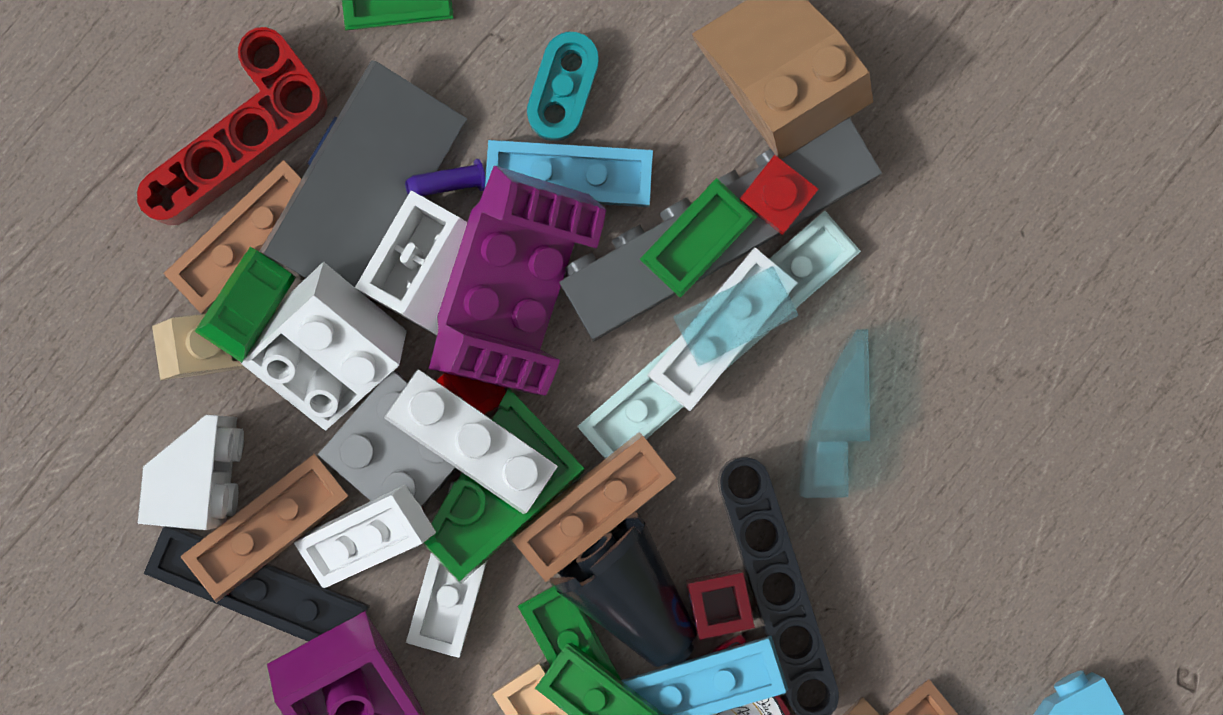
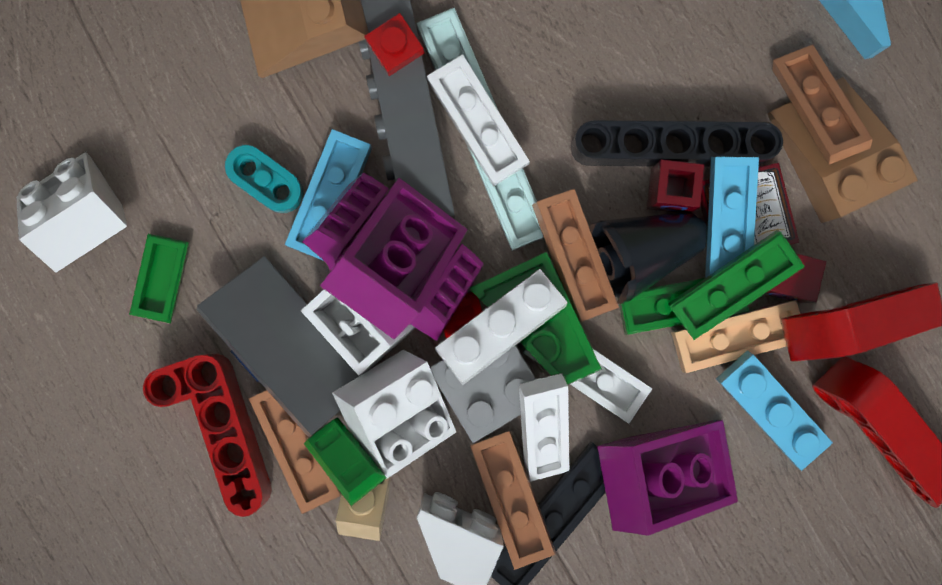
camera: 80 degrees left, 0 degrees up
(447, 180) = (304, 282): dark purple piece -> none
(510, 286) = (395, 259): none -> magenta slope
(698, 237) = (406, 112): green tile -> none
(735, 316) = (472, 105): clear light blue tile -> none
(837, 417) = (567, 62): clear light blue slope -> none

